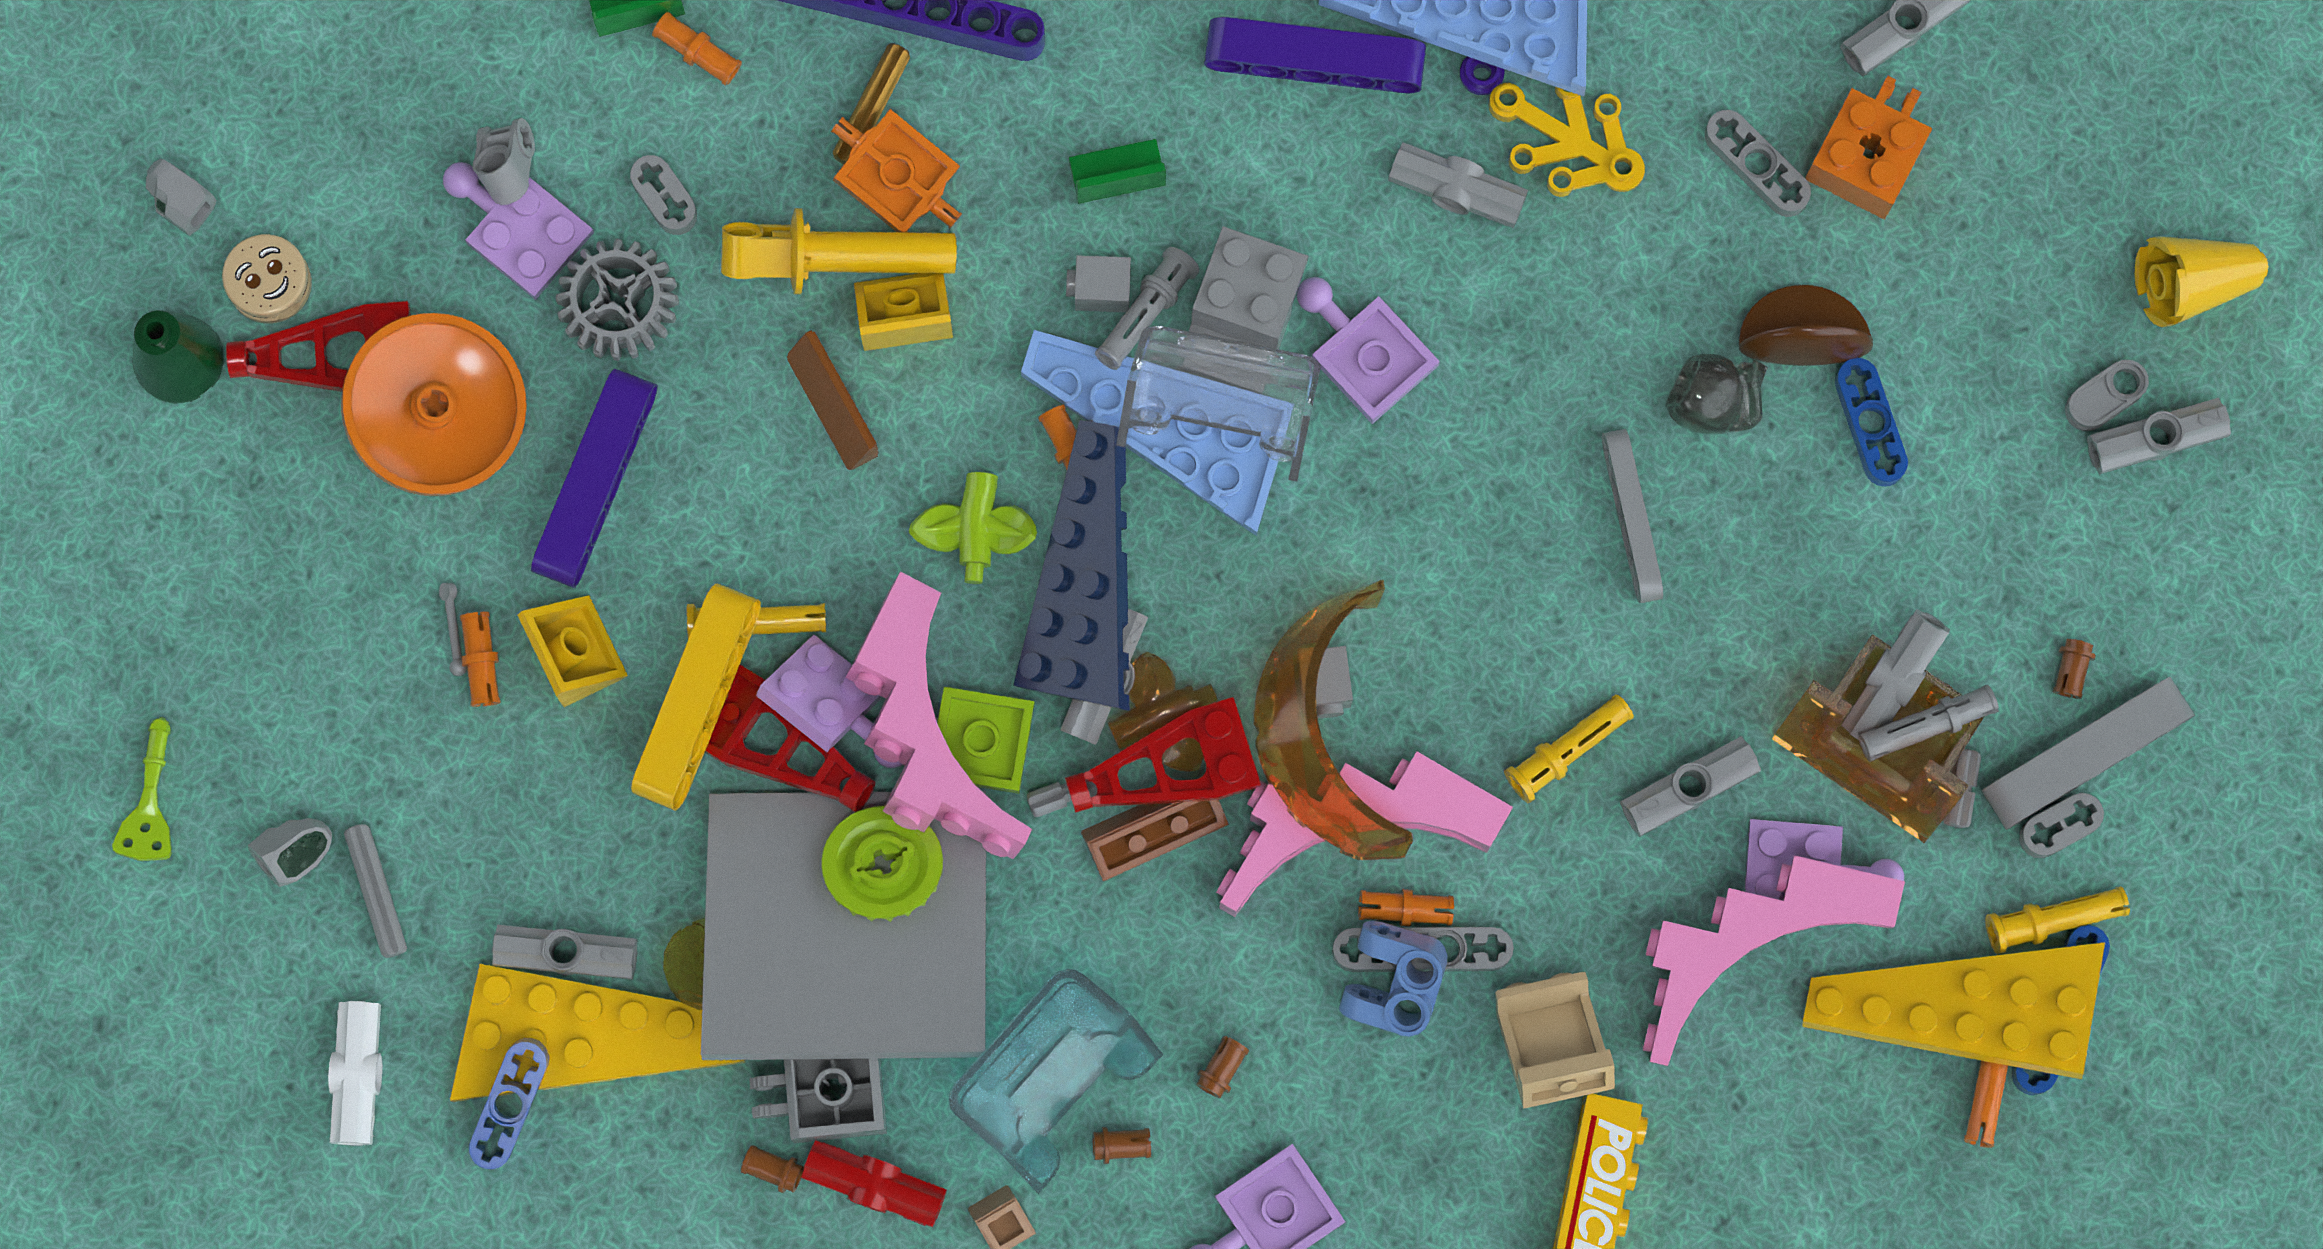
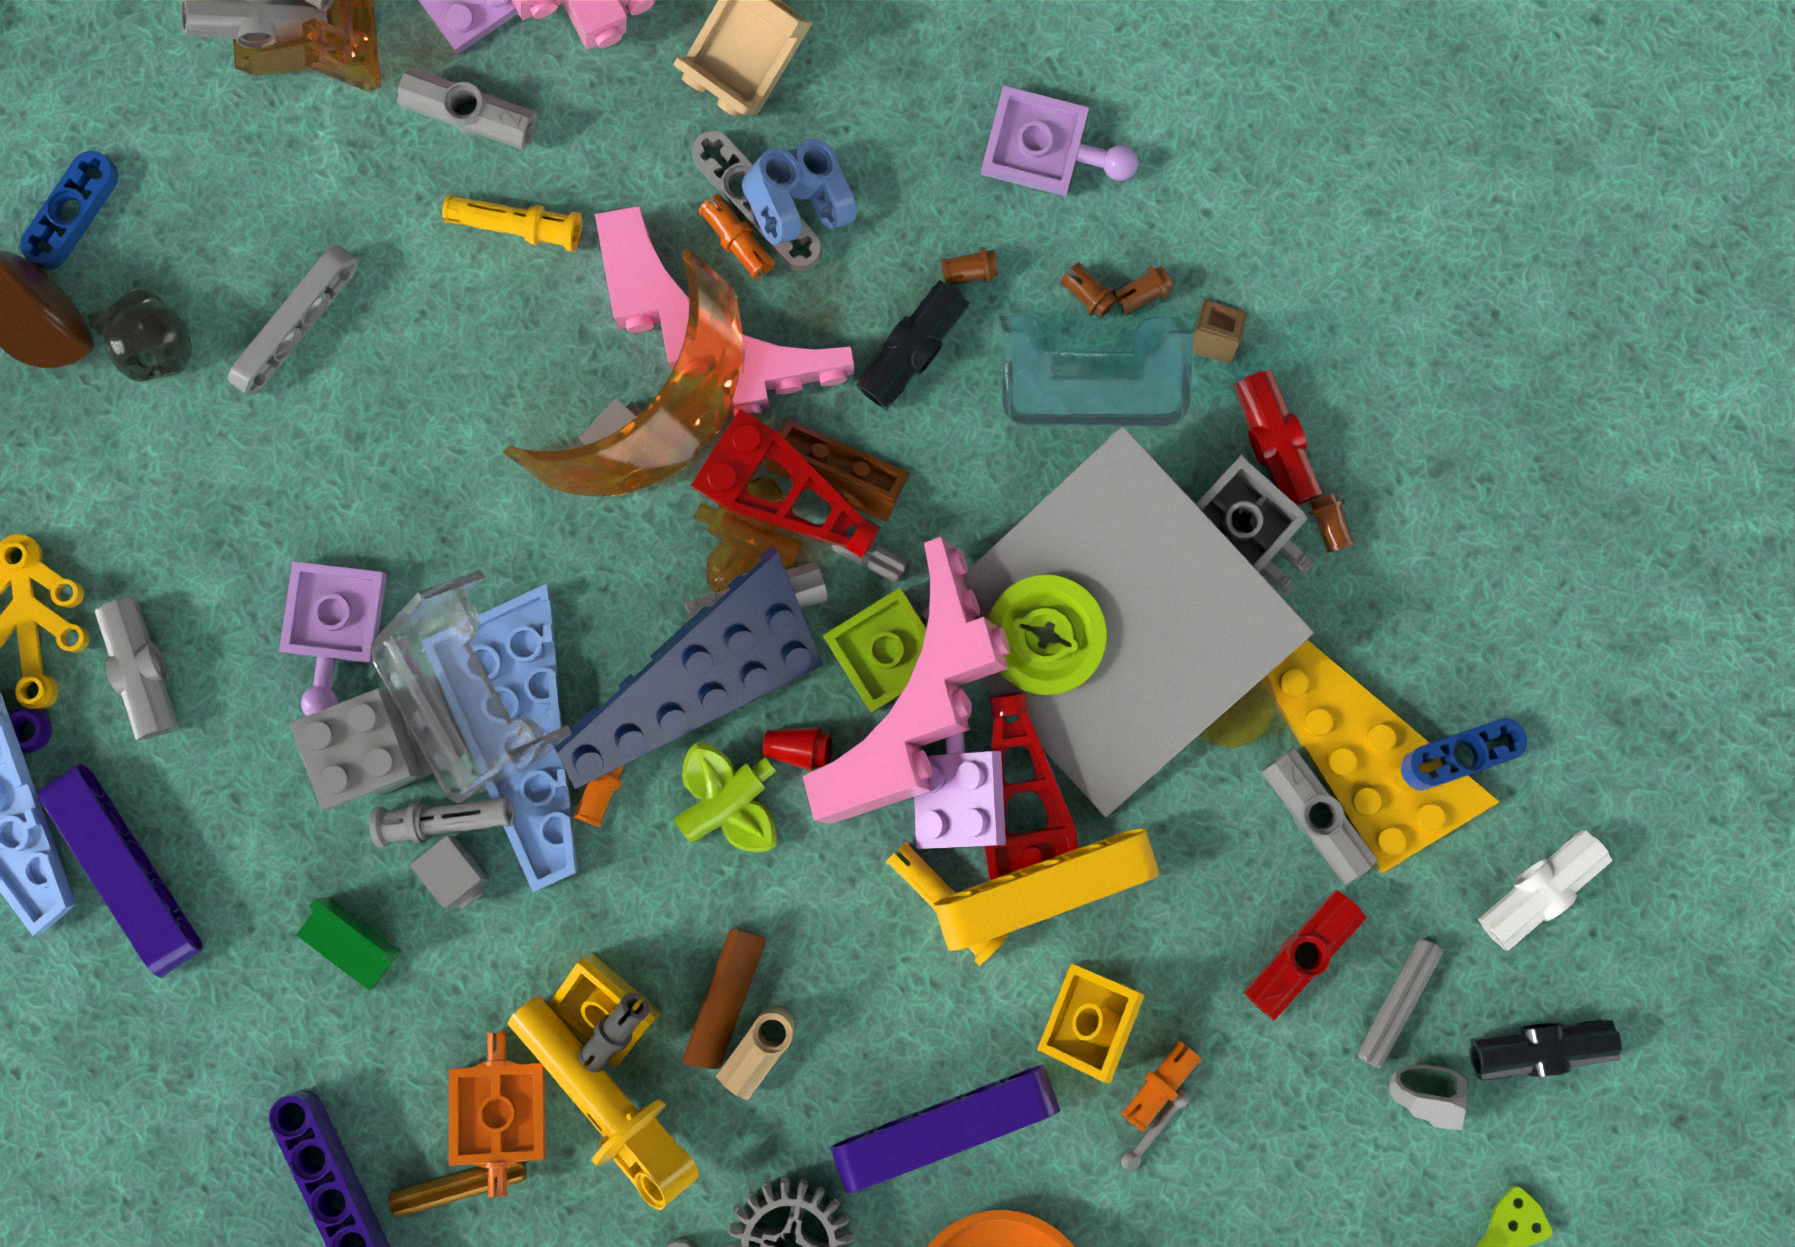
camera: 130 degrees left, 5 degrees up
(244, 965) = (1545, 1049): none -> black piece
(471, 820) = (1326, 932): none -> red piece
(771, 390) = (755, 1054): none -> tan piece
(876, 297) = (613, 1032): none -> dark grey pin
(966, 614) = (800, 747): none -> red cone
(1083, 1188) = (1144, 290): none -> dark orange pin
(1199, 967) = (913, 344): none -> black piece

